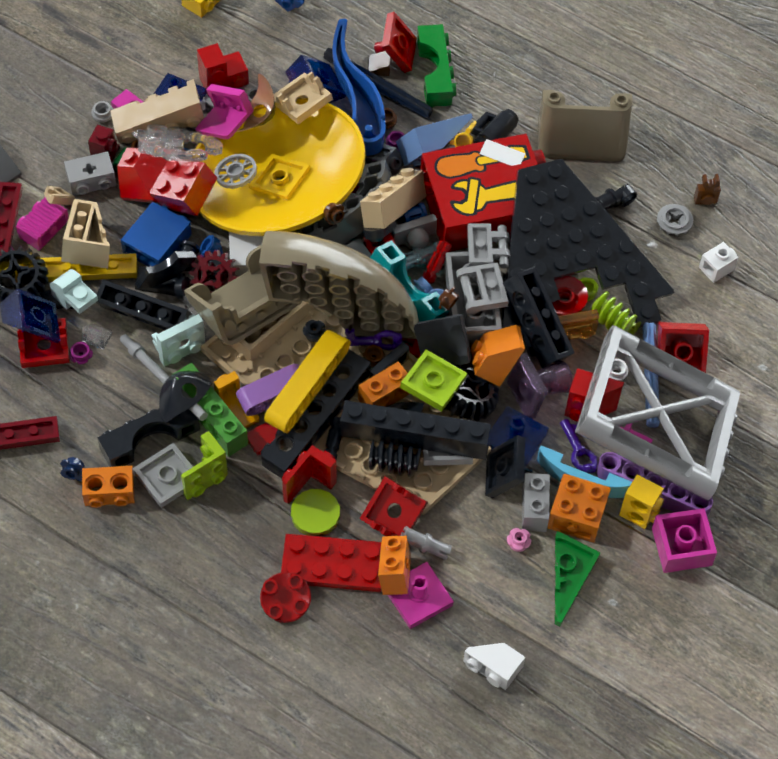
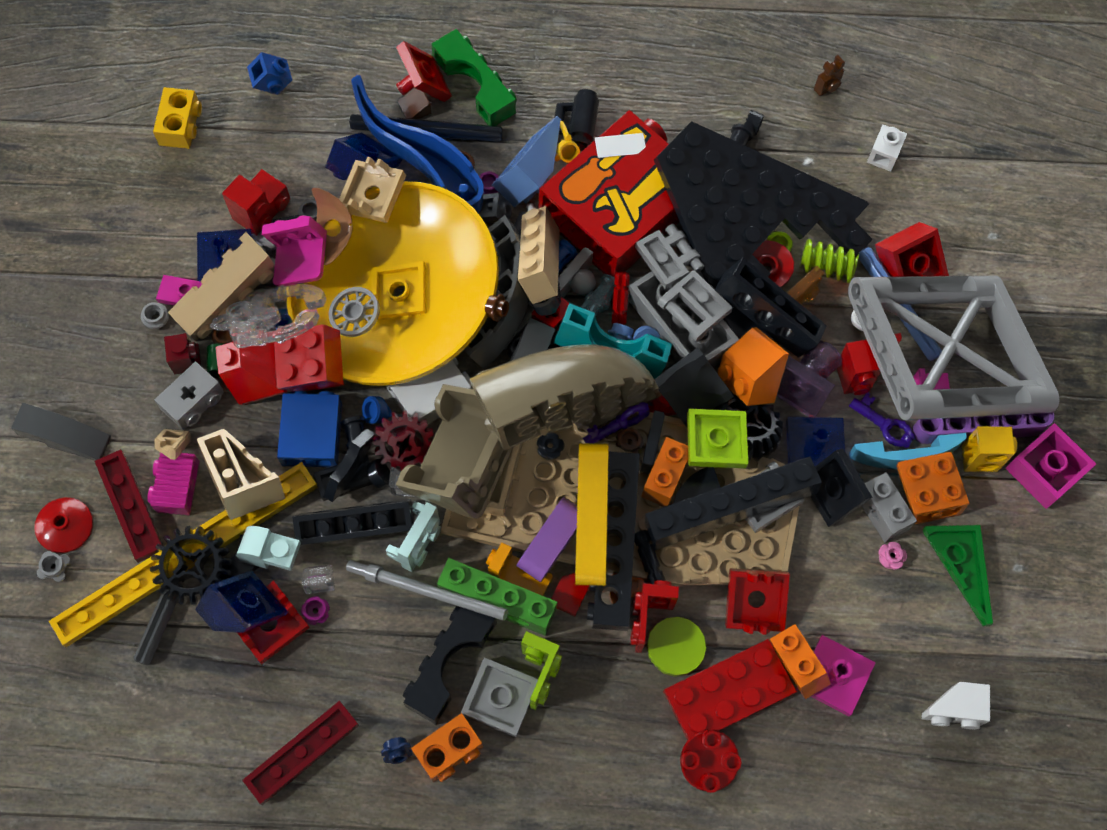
camera: 30 degrees left, 10 degrees up
(171, 397) = (455, 611): black piece -> none
(394, 458) = (727, 543): black piece -> none
(427, 543) = (811, 616): light grey pin -> none
(448, 299) = (670, 337): reddish brown plate -> none
(584, 131) = (673, 77): dark tan windscreen -> none
(675, 212) = (807, 116): light grey gear -> none

